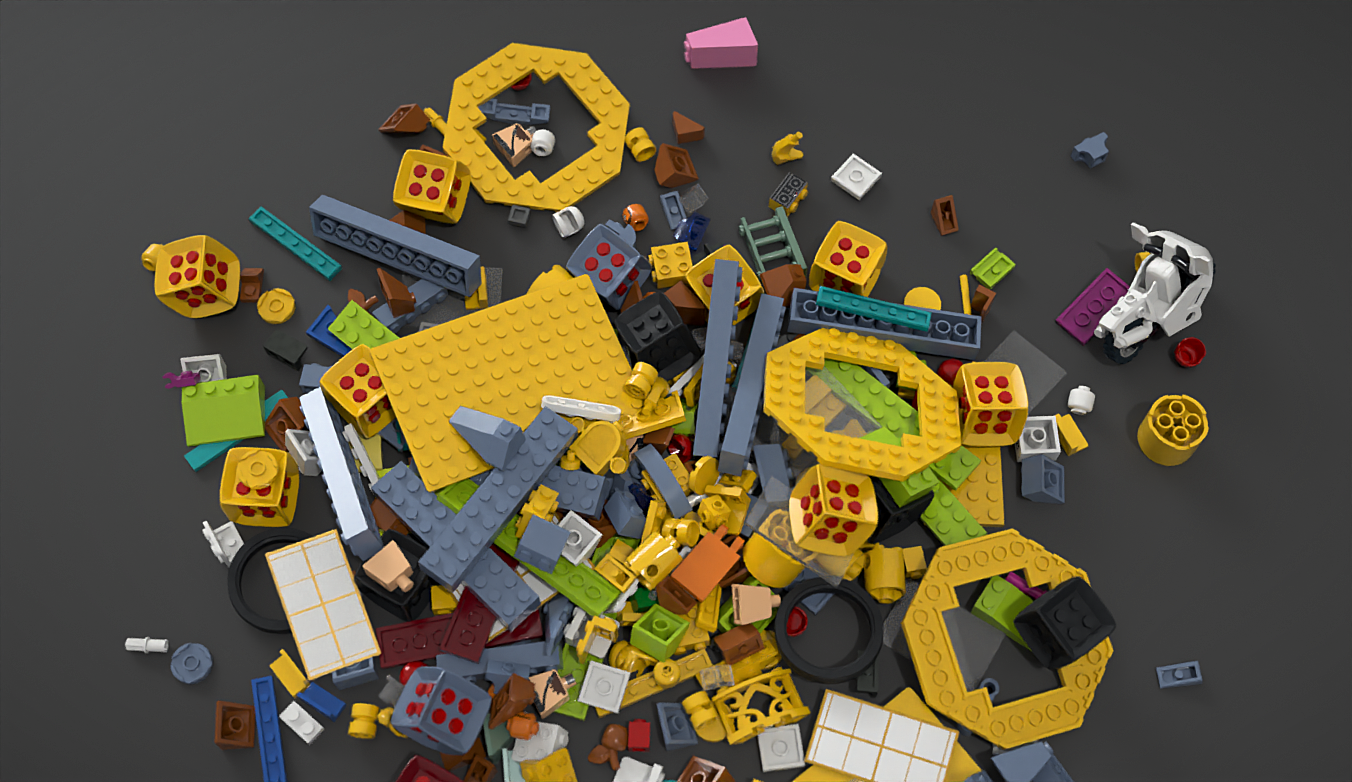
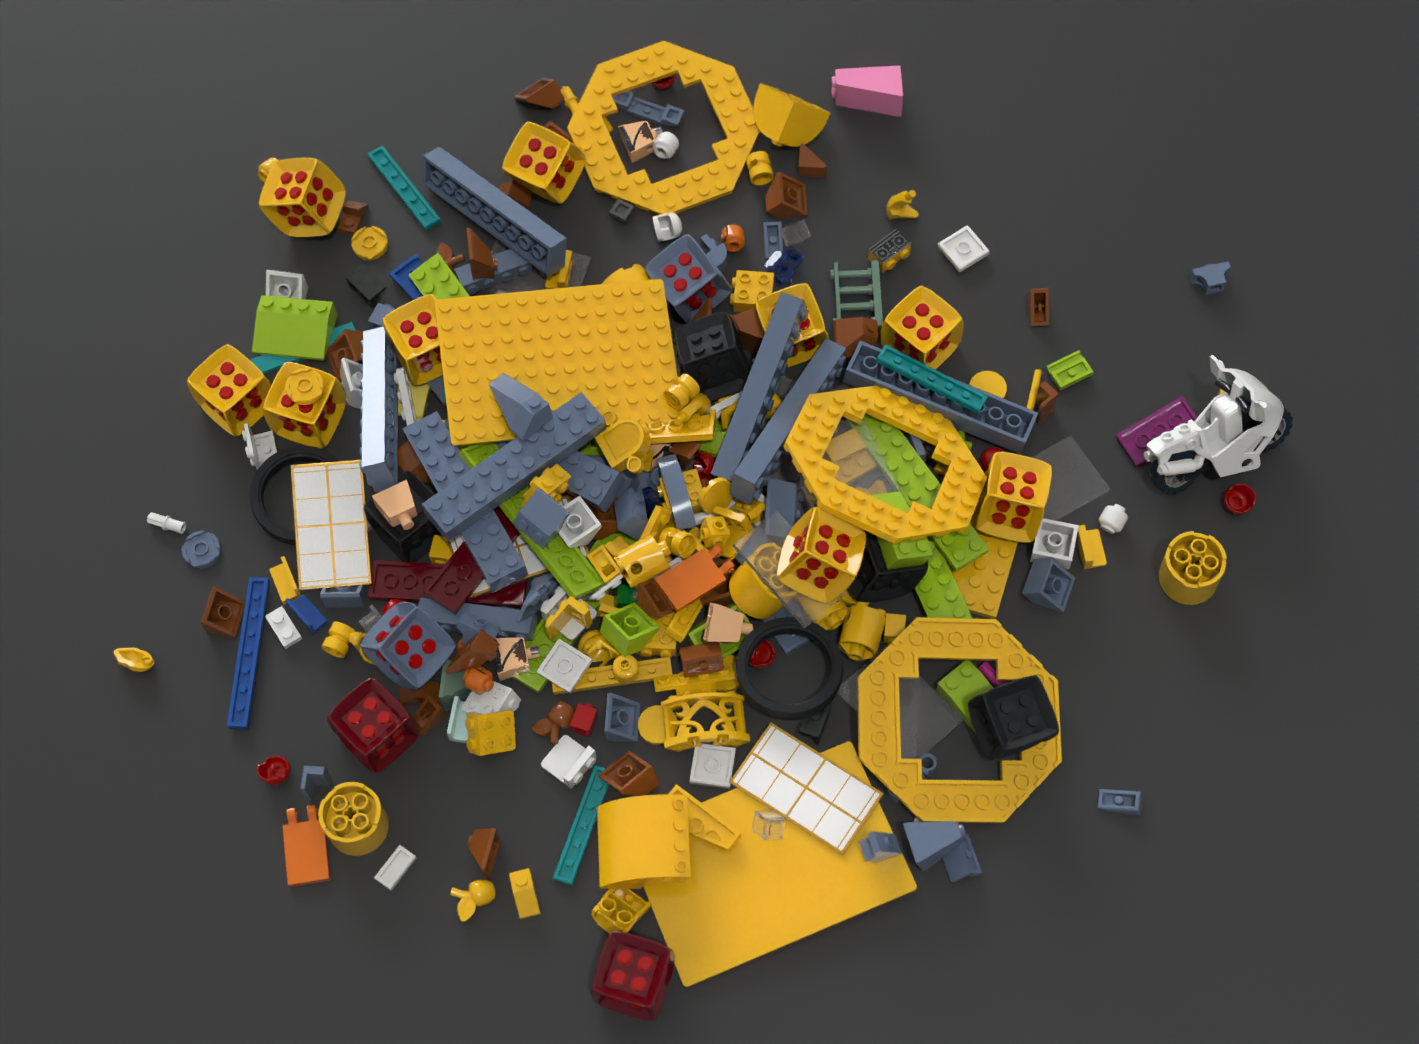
camera: 20 degrees right, 0 degrees up
(178, 490) = (229, 389): none -> yellow piece
(185, 379) = (266, 290): magenta plate -> none
(570, 461) = (592, 450): yellow tile -> none
(581, 408) = (622, 406): white plate -> none
(651, 89) = (787, 117): none -> yellow brick
(701, 712) = (646, 710): yellow wheel -> none
(716, 677) = (670, 683): clear panel -> none

